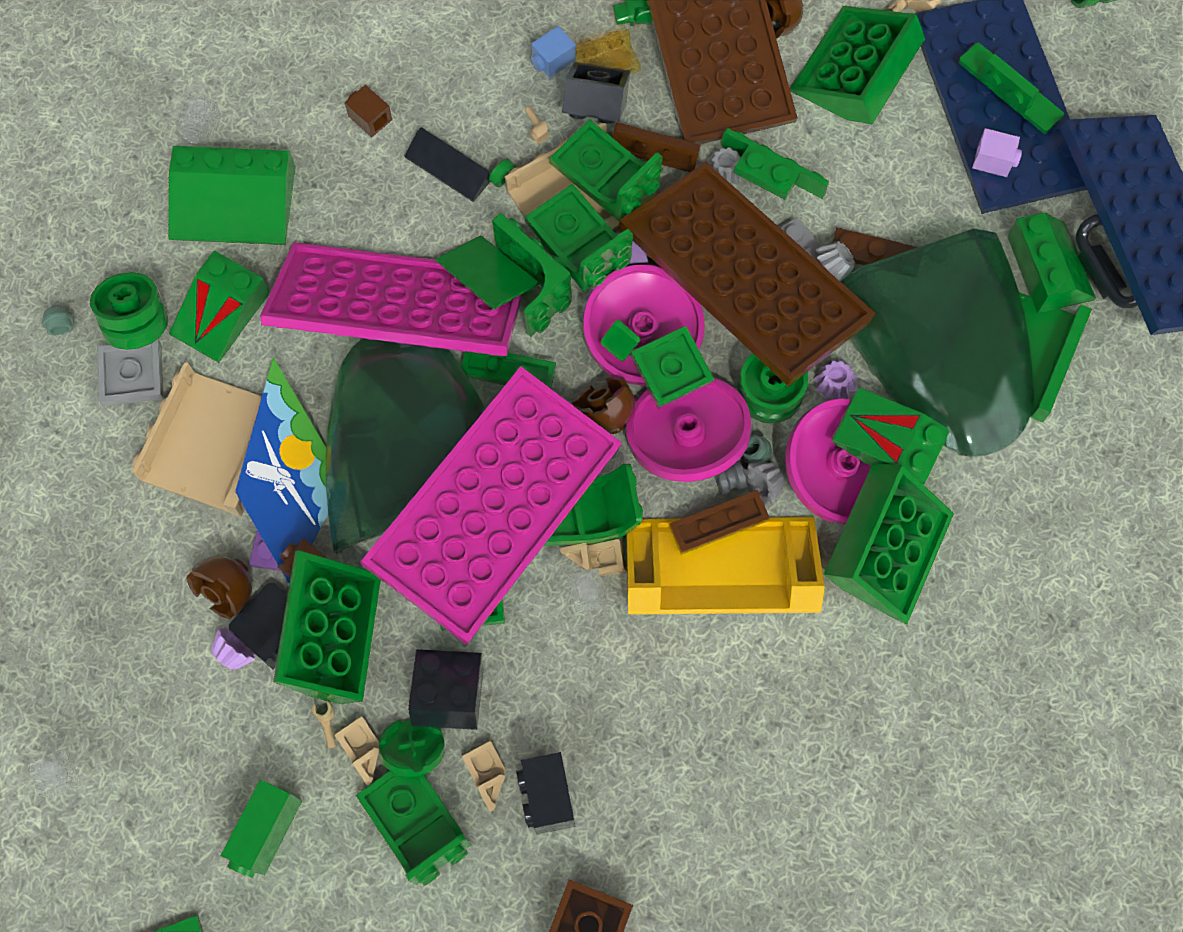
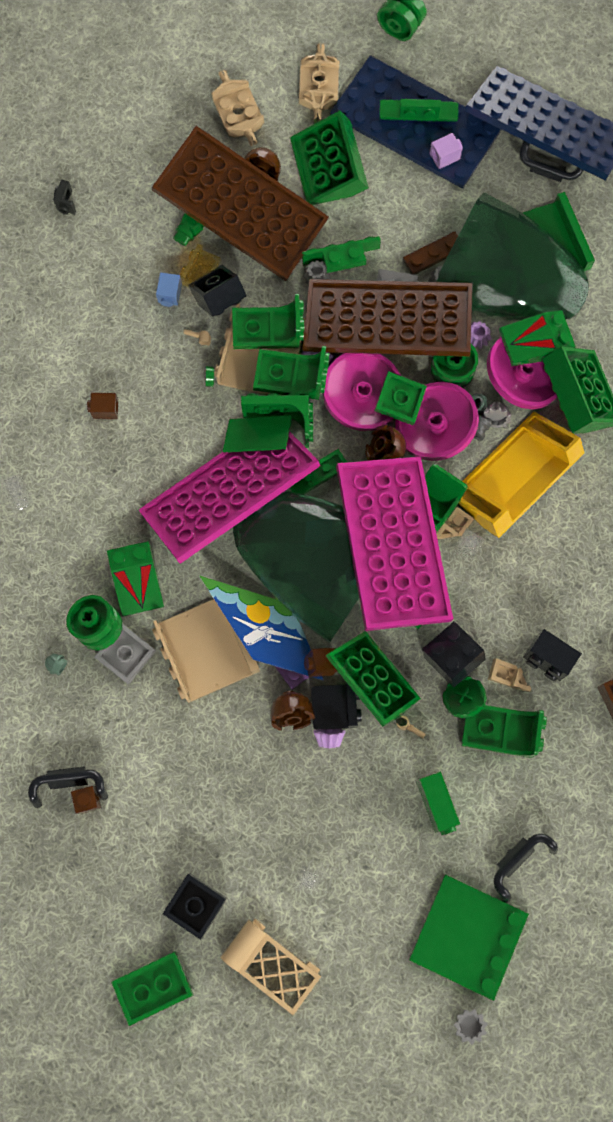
camera: 45 degrees left, 5 degrees up
(230, 195) = (78, 516): green slope -> none
(361, 747) = (438, 721): tan slope -> none
(447, 164) = (175, 397): black slope -> none
(620, 340) = (364, 407): green slope -> none
(645, 143) = (276, 293): reddish brown plate -> none
(719, 522) = (496, 454): reddish brown plate -> none
(836, 259) = (422, 272): light grey piece -> none
(1049, 262) = (520, 186): green slope -> none

